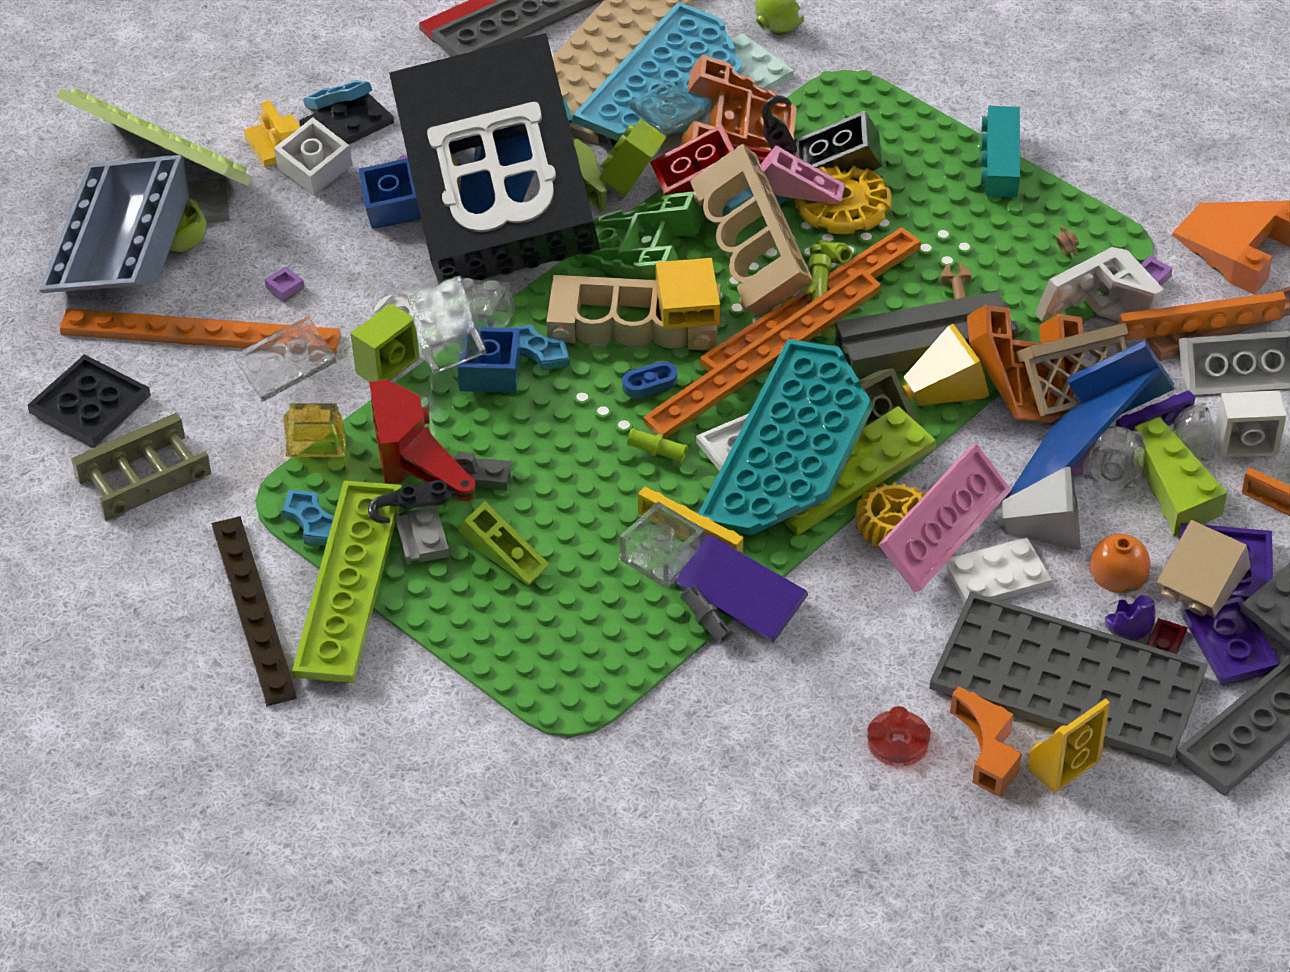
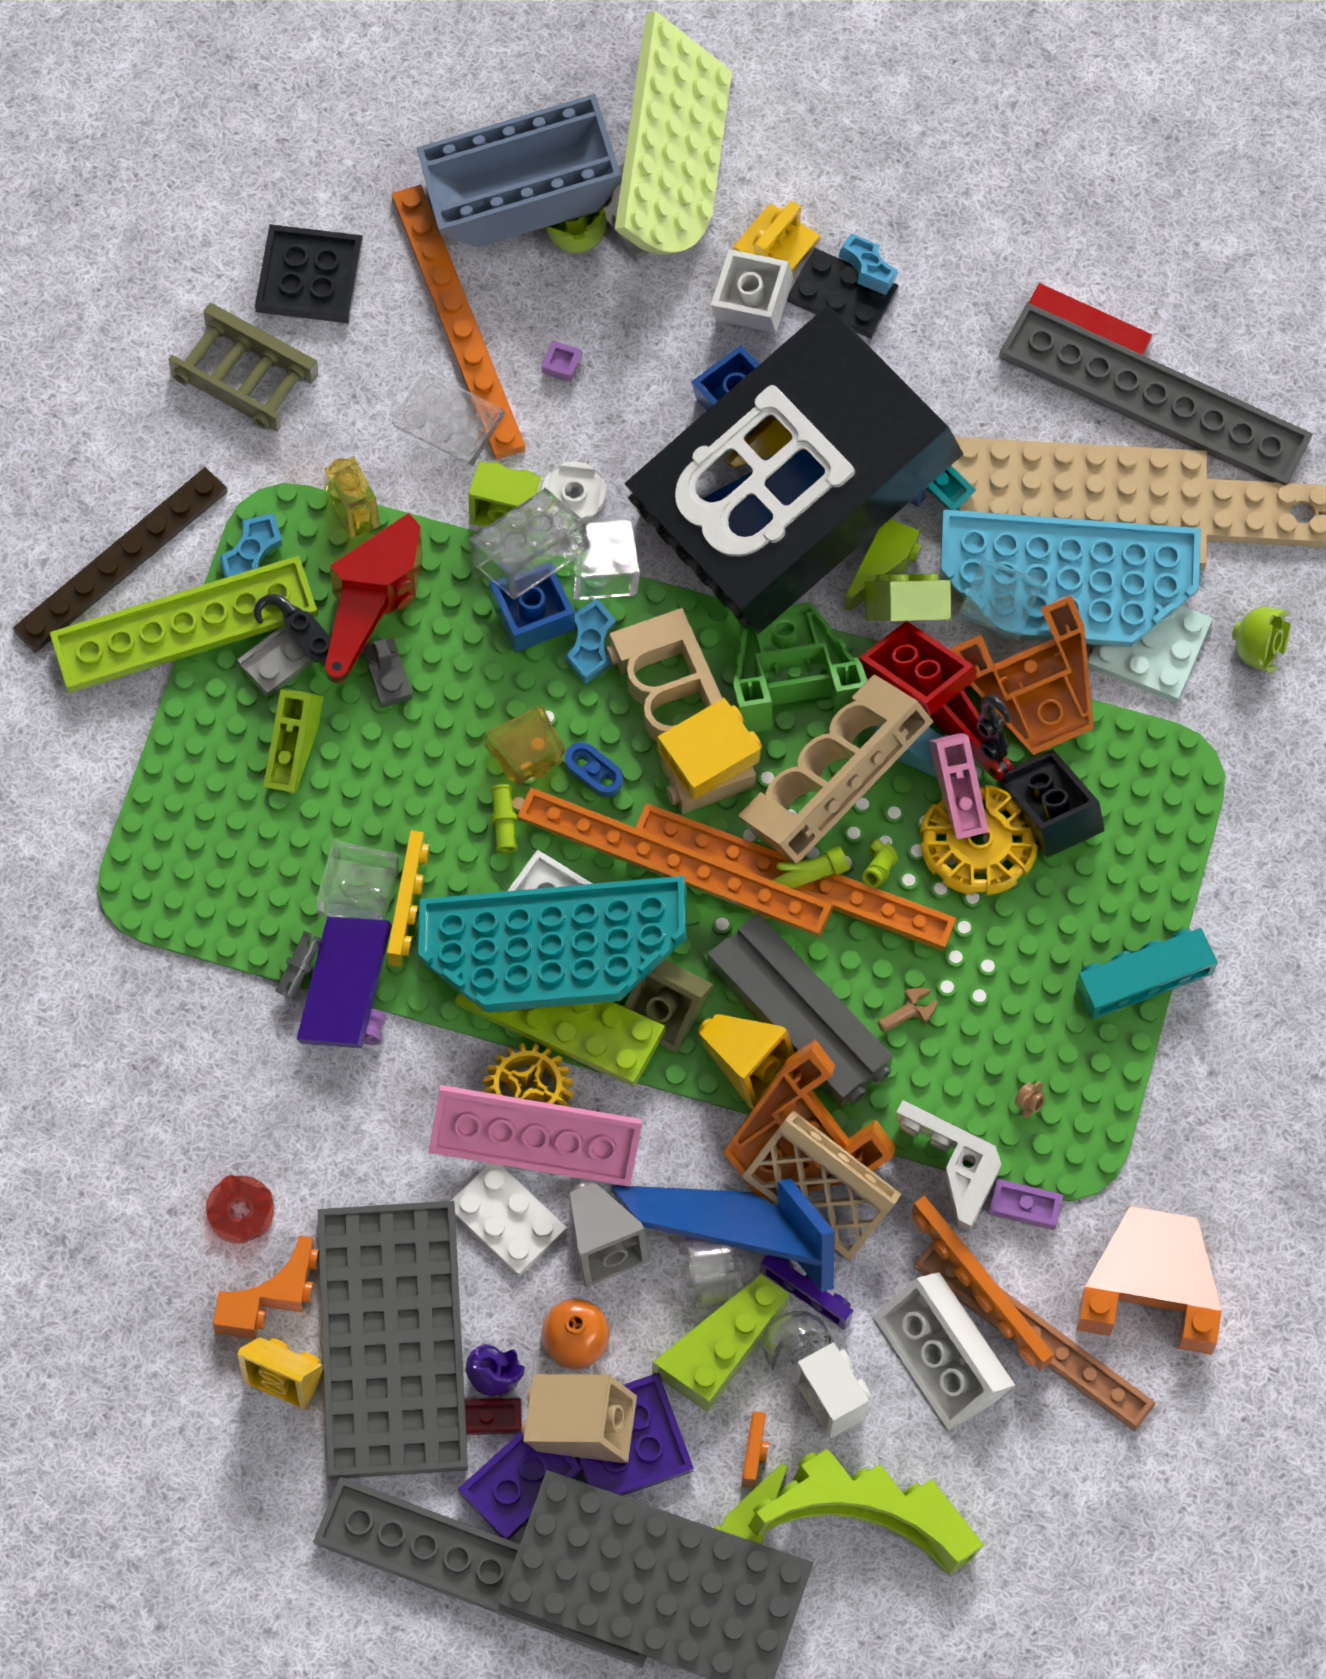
camera: 60 degrees right, 20 degrees up
(605, 409) = (526, 746): none -> clear yellow torso

